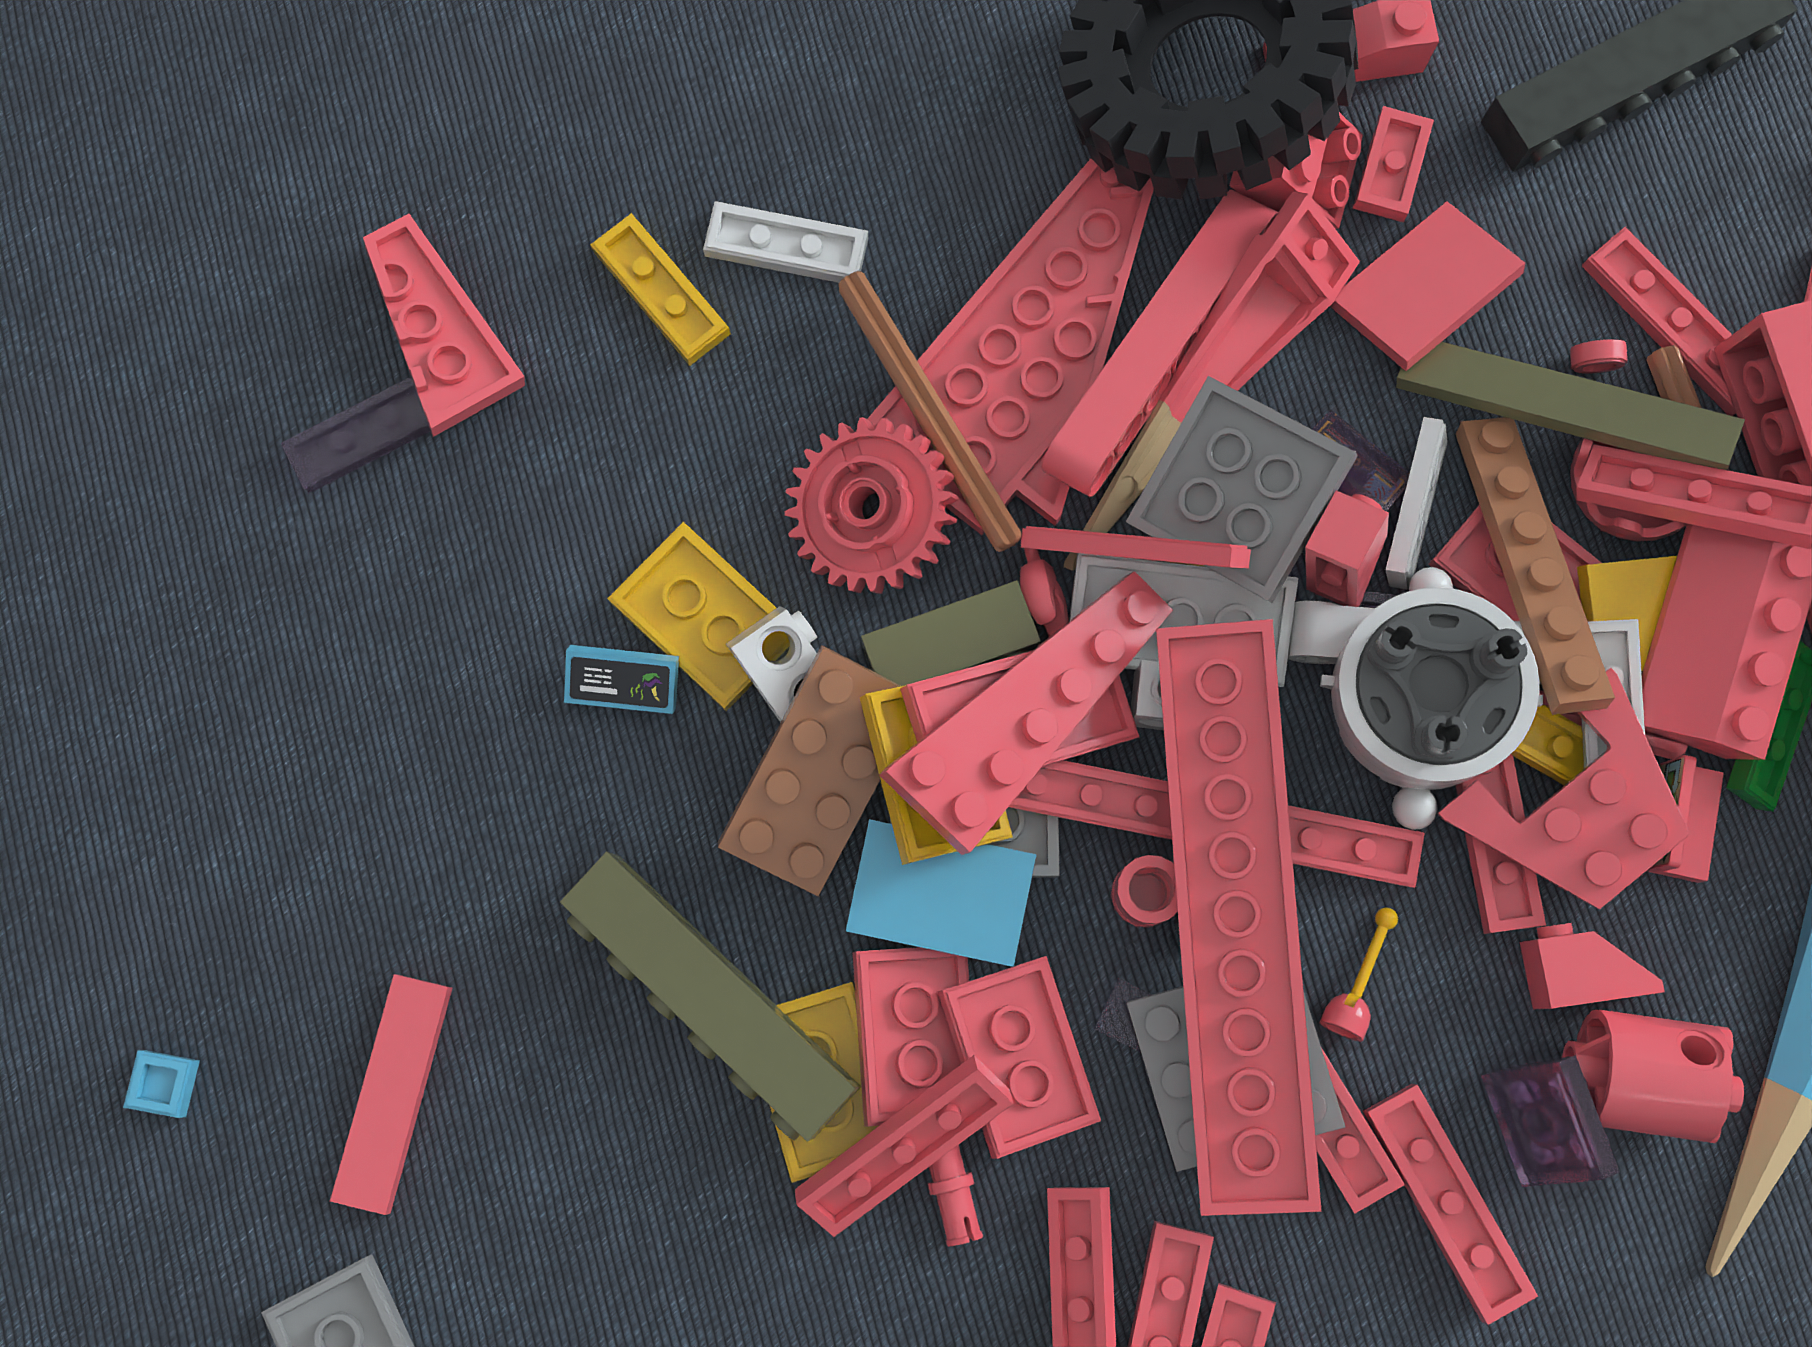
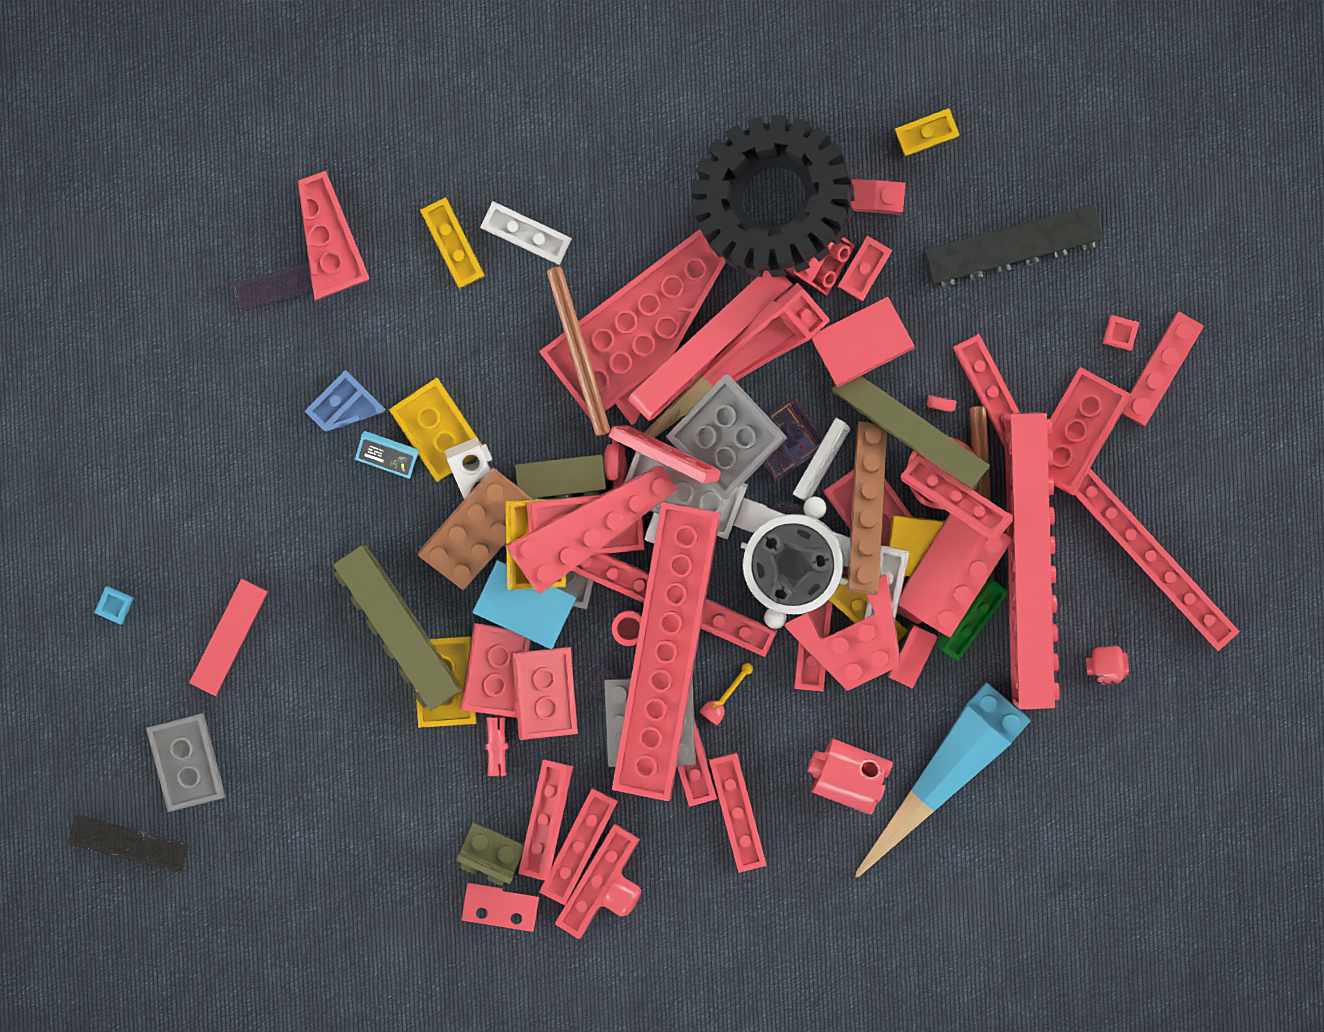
camera: 10 degrees right, 10 degrees up
(523, 607) = (343, 404): none -> medium blue wing
(903, 1146) = (476, 723): coral plate -> none
(907, 515) = (557, 395): coral gear -> none
(1345, 548) = (772, 479): coral slope -> none
(1550, 1122) = (793, 786): clear purple plate -> none
(1581, 969) = (834, 717): coral slope -> none

